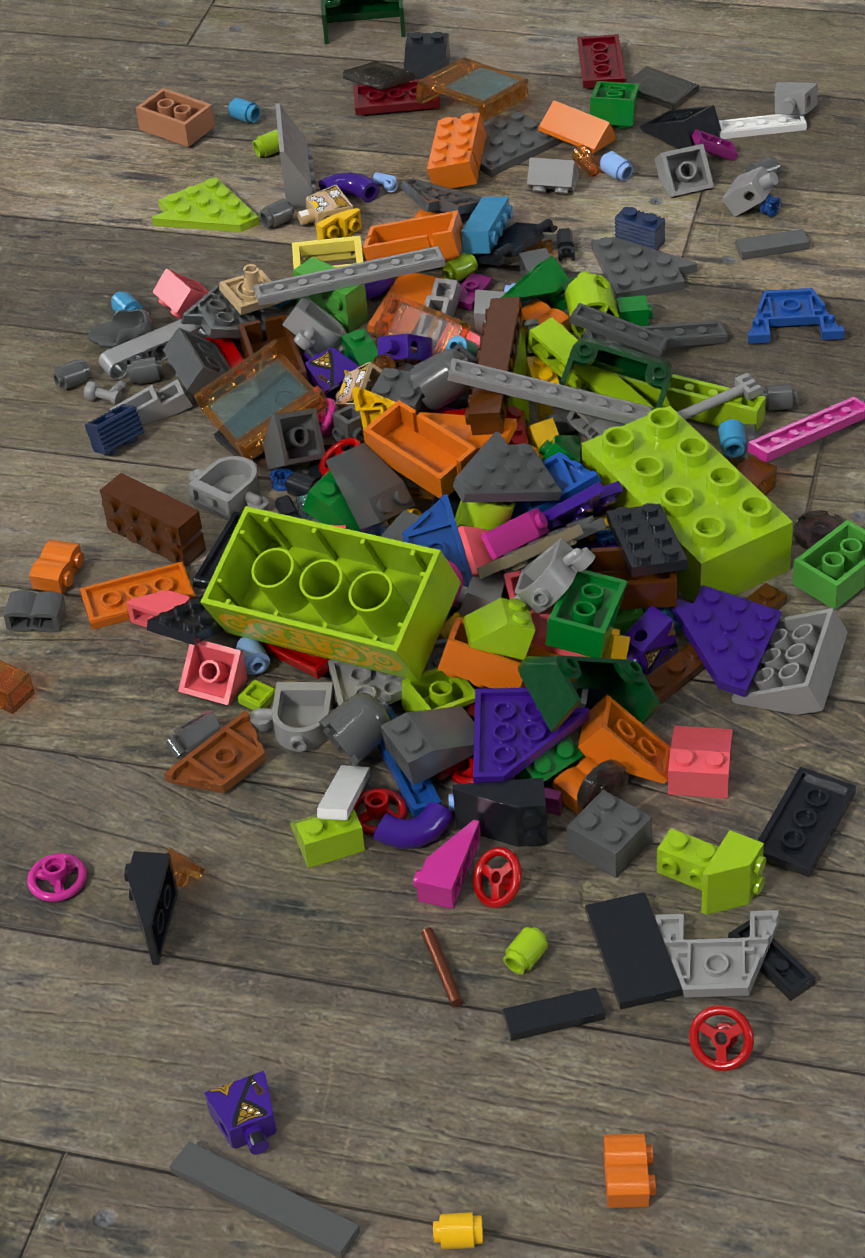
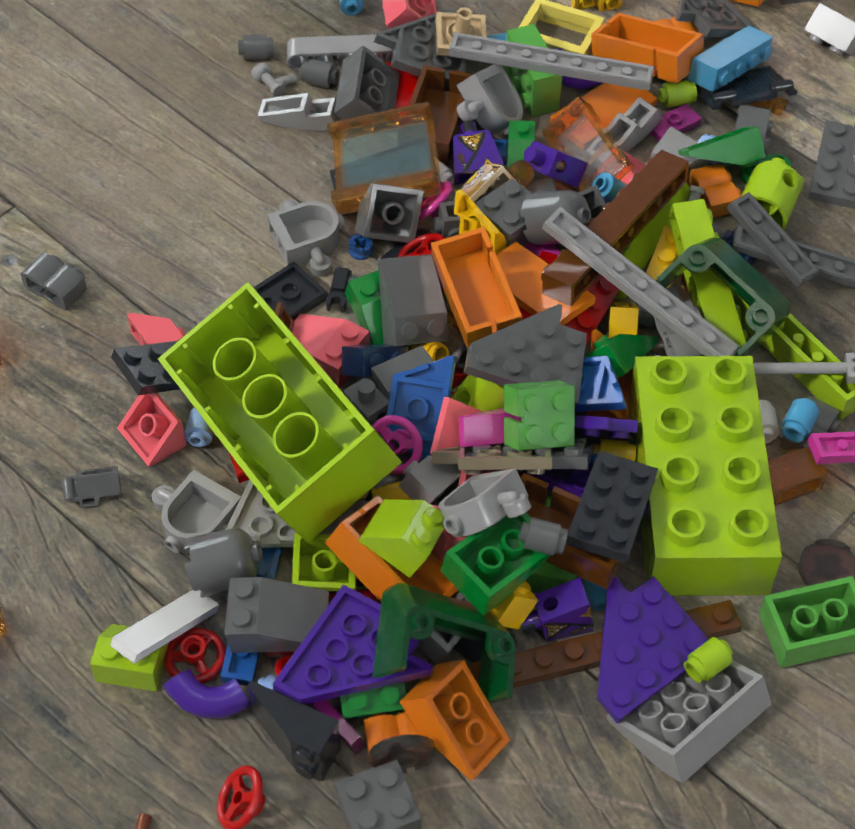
camera: 25 degrees right, 10 degrees up
(56, 566) = (103, 242): orange brick -> none
(108, 600) = (124, 296): orange tile -> none
(114, 429) = (247, 124): dark blue brick -> none
(123, 328) = (328, 21): dark grey hair -> none
(153, 519) = (209, 238): reddish brown piece -> none
(220, 759) = (100, 522): dark orange wing -> none
(257, 695) = (177, 469): lime tile -> none
(300, 483) = (367, 260): black brick -> none
(447, 868) = (207, 758): dark pink slope -> none
(551, 501) = (545, 415): none -> bright green piece
(565, 244) = (798, 112): black bar -> none
(615, 575) = (543, 536): none -> dark grey brick
(635, 310) = (810, 222): green brick -> none
(699, 762) = (525, 770): coral slope -> none
(785, 618) = (708, 660): none -> lime brick

